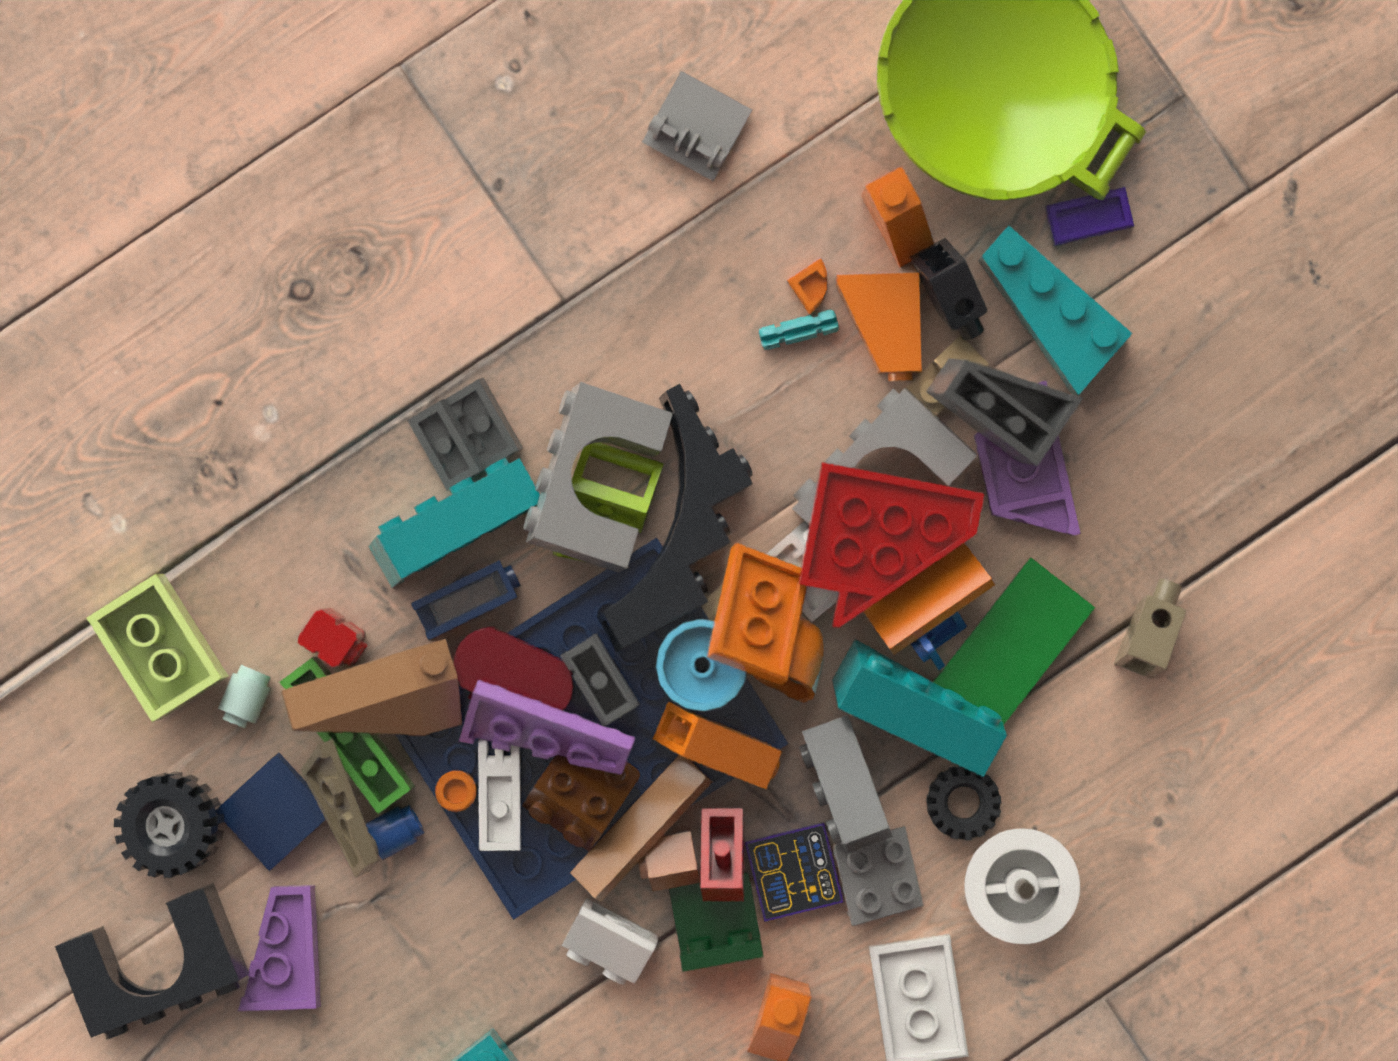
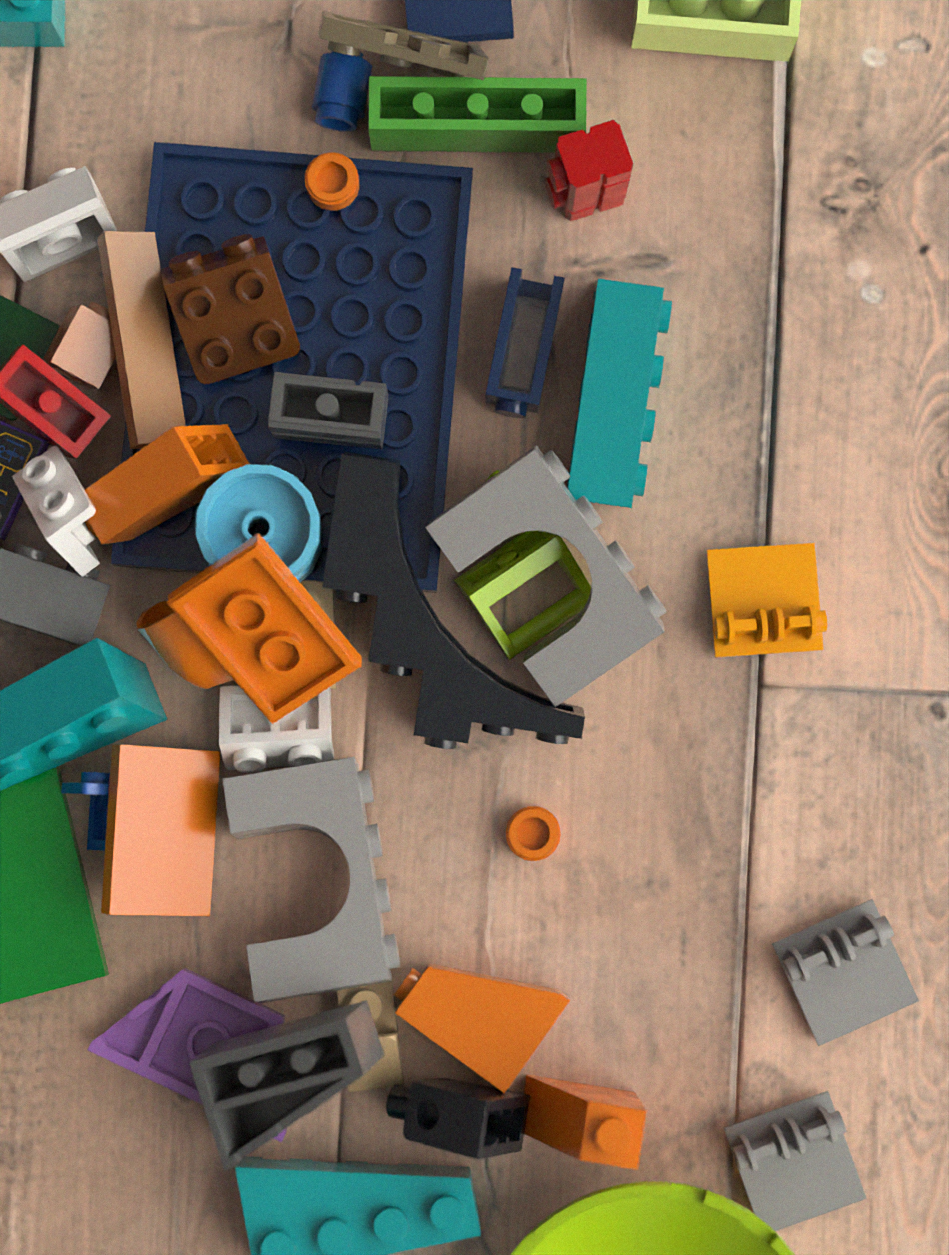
camera: 130 degrees right, 5 degrees down
(244, 696) = (597, 45): light aqua brick -> none
(392, 695) = (483, 178): medium nougat wedge -> none
(465, 433) = (700, 476): dark grey slope -> none
(499, 799) = (289, 218): white hinge -> none
(511, 337) = (765, 600): none -> light orange hinge
(514, 666) = (406, 324): dark red brick -> none
(548, 732) = (317, 308): medium lavender wing -> none
(756, 370) = (533, 833): none -> orange tile
(778, 796) = (59, 507): none -> white bracket
(798, 329) = (541, 913): teal axle -> none
(810, 285) = (580, 962): orange tile -> none
(829, 73) = (795, 1162): none -> light grey hinge
(880, 532) = (251, 830): red wing -> none

